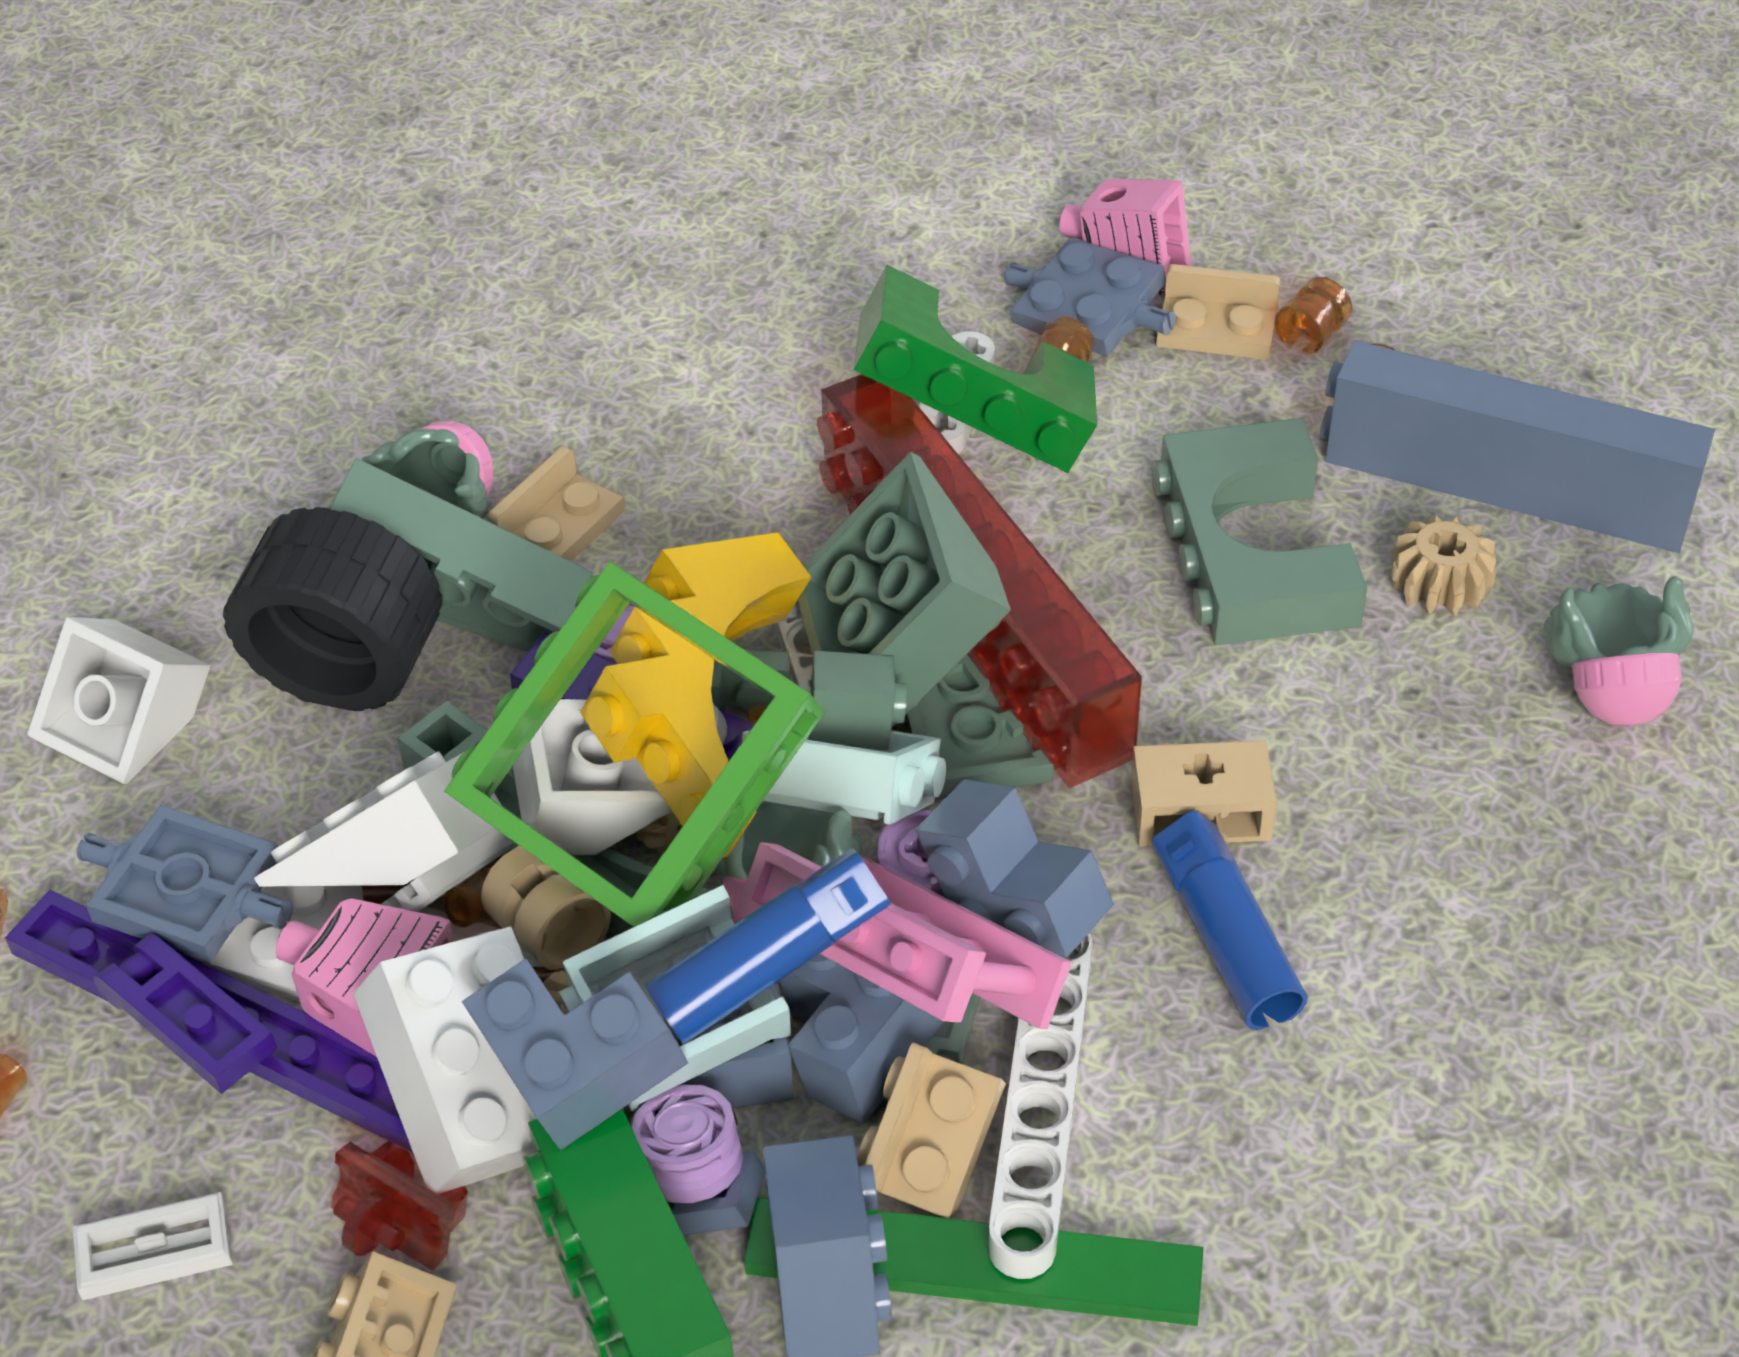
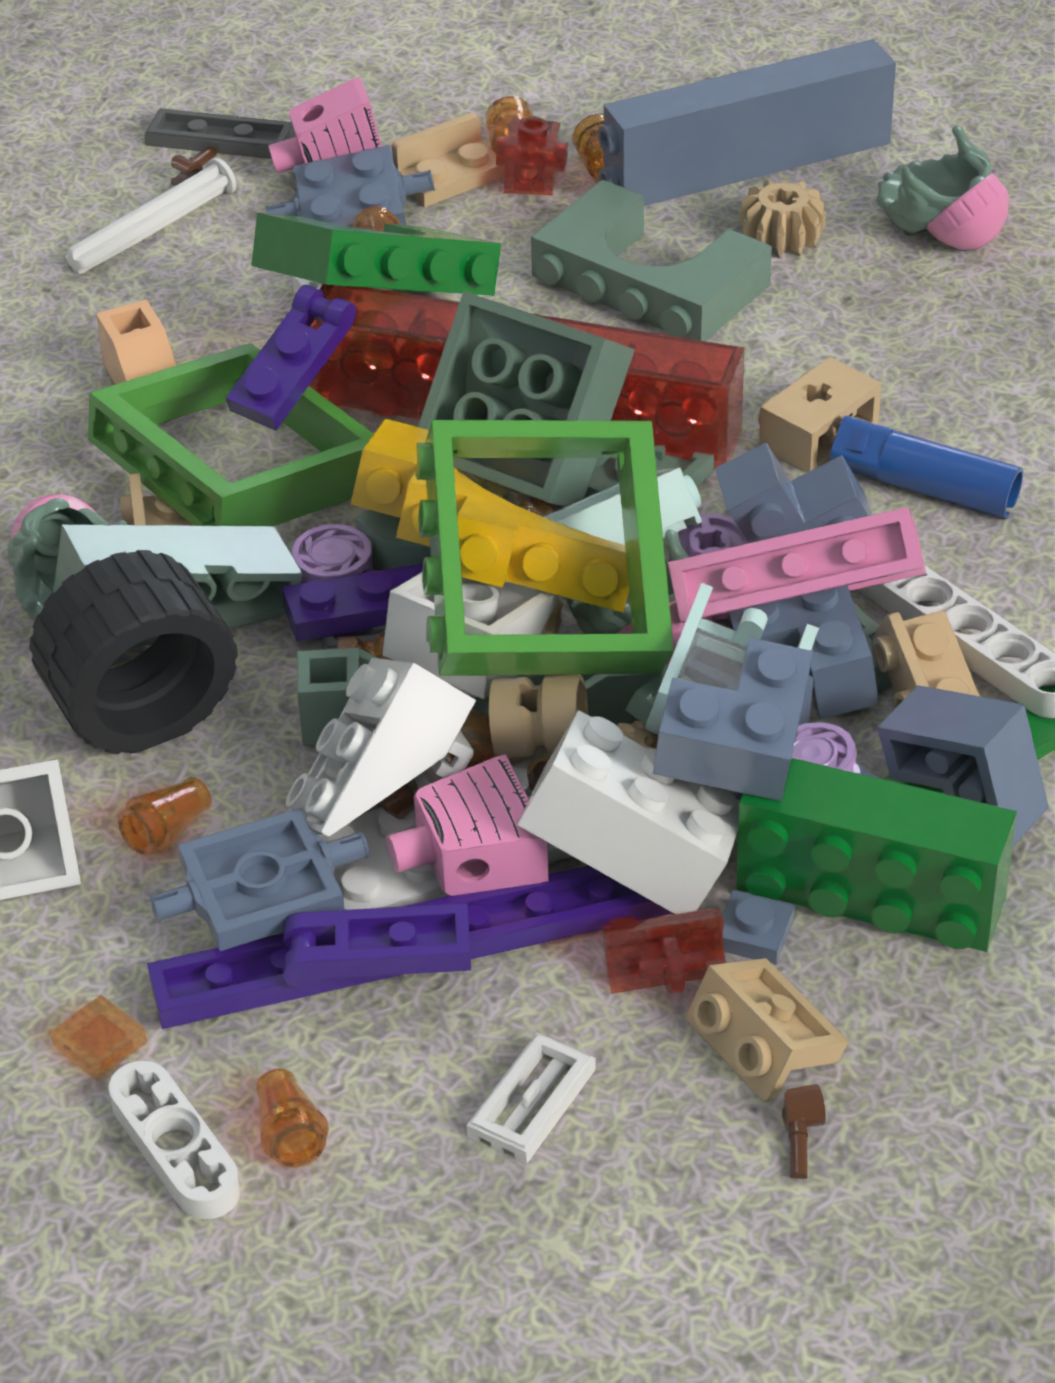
camera: 45 degrees left, 5 degrees down
(233, 770) = (162, 815): none -> clear orange cone
(500, 1247) = (756, 926): none -> sand blue plate
(689, 392) = (126, 430): none -> bright green window
(716, 347) = (133, 342): none -> light nougat slope
(767, 945) = (785, 571): blue piece -> none
(769, 421) = (291, 358): none -> dark purple plate
(857, 698) = (575, 482): sand green brick -> none
(913, 216) = (152, 216): none -> white axle
(1000, 188) = (191, 166): none -> reddish brown hand
(1061, 158) = (224, 132): none -> dark grey tile
(1287, 353) = (531, 156): none -> clear red brick

